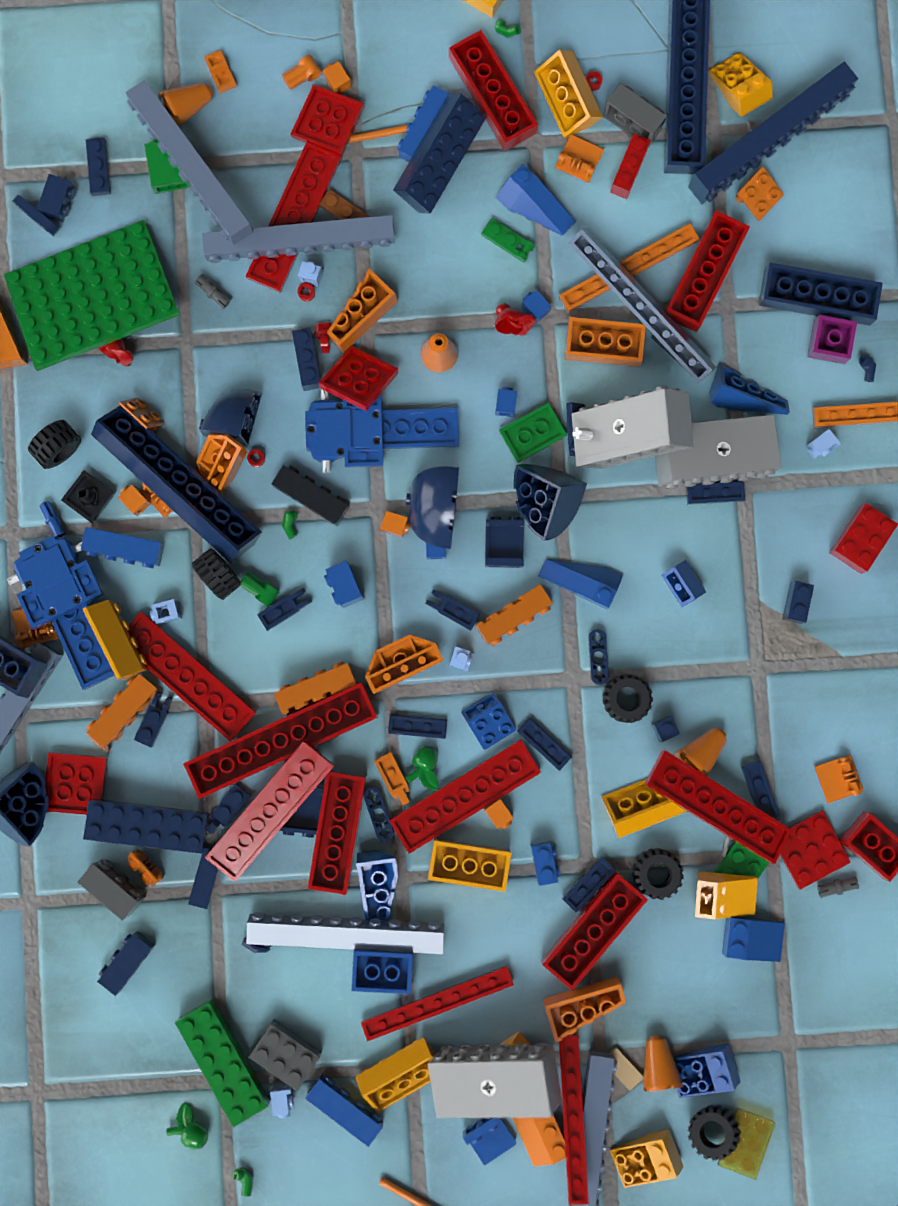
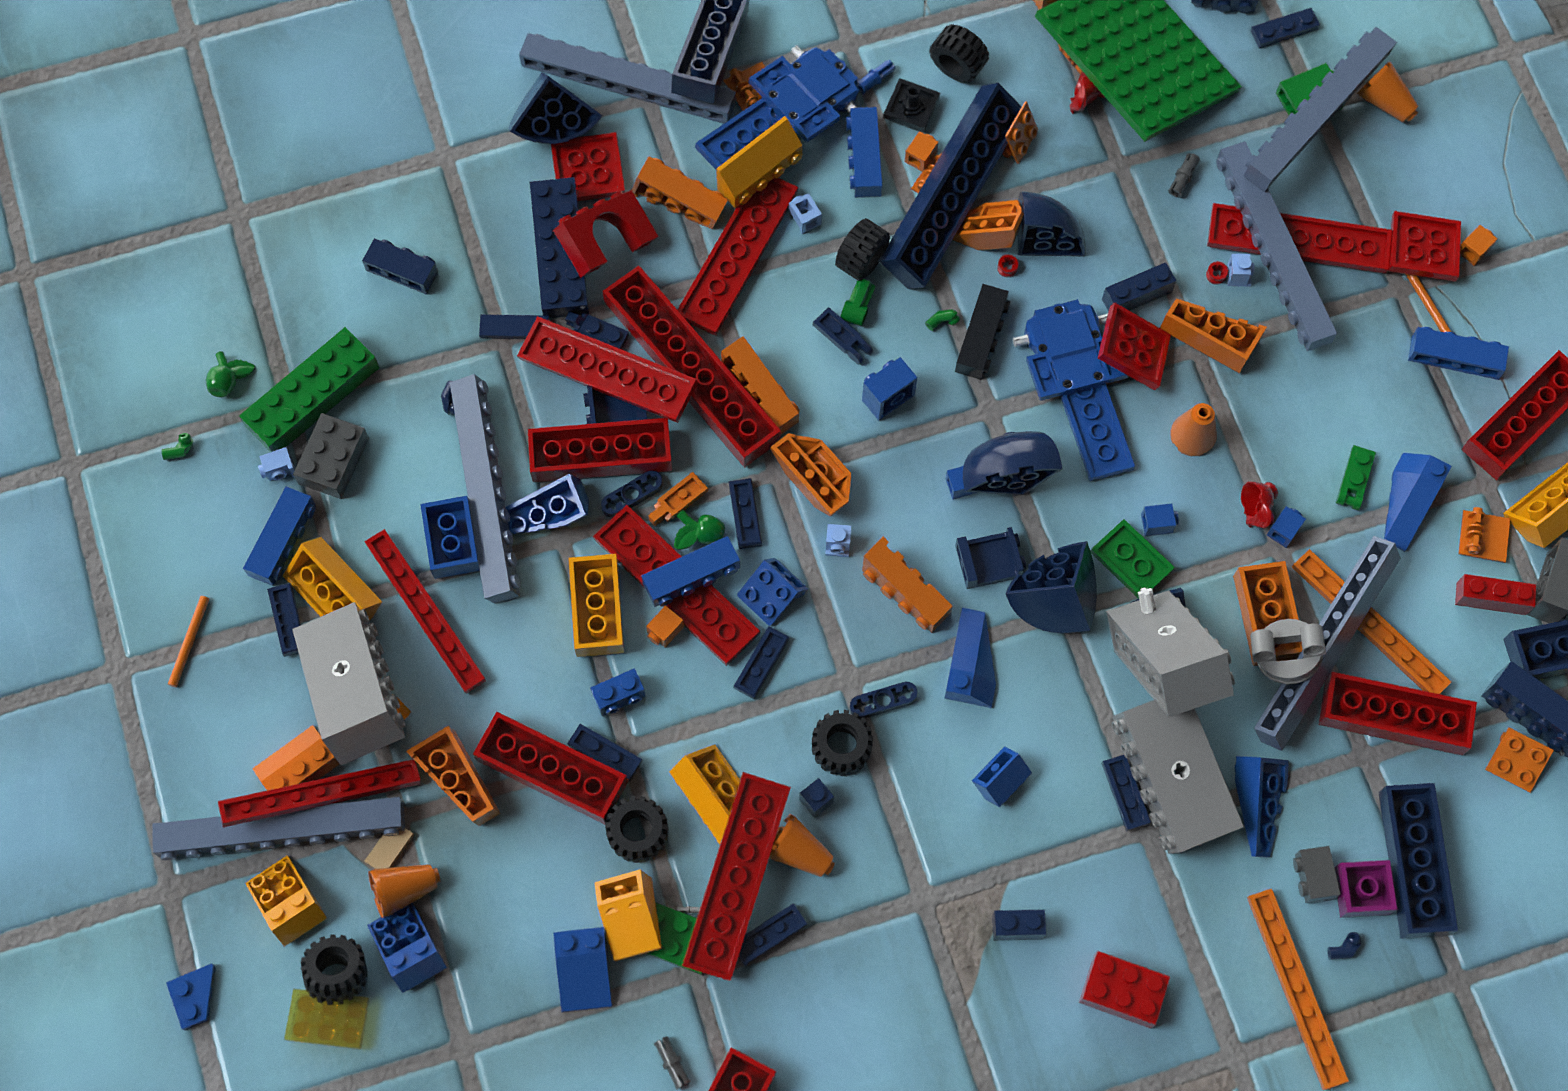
camera: 75 degrees right, 15 degrees down
(112, 888) = (480, 229): dark grey brick -> none
(135, 863) = (516, 253): orange hinge -> none
(144, 810) = (622, 212): none -> red arch
(153, 721) = (681, 231): dark blue hinge -> none
(220, 71) = (1439, 123): orange slope -> none
(305, 70) = (1475, 211): orange piece -> none
(321, 334) = (1164, 304): red piece -> none
(340, 207) = (1329, 284): dark orange plate -> none
(395, 524) = (975, 429): orange brick -> none
(414, 1117) = (285, 616): none -> dark blue plate
(439, 153) = (1430, 372): dark blue brick -> none
(455, 610) = (893, 520): dark blue hinge -> none
(462, 783) = (691, 572): none -> blue brick
(489, 1138) = (277, 706): blue bracket -> none
(650, 318) = (1288, 631): none -> light grey piece
(812, 371) = (1316, 874): none -> dark grey brick
(813, 850) = (710, 1018): red plate -> none
(823, 444) = (1228, 910): light blue brick -> none
(839, 779) = (809, 1032): orange hinge -> none

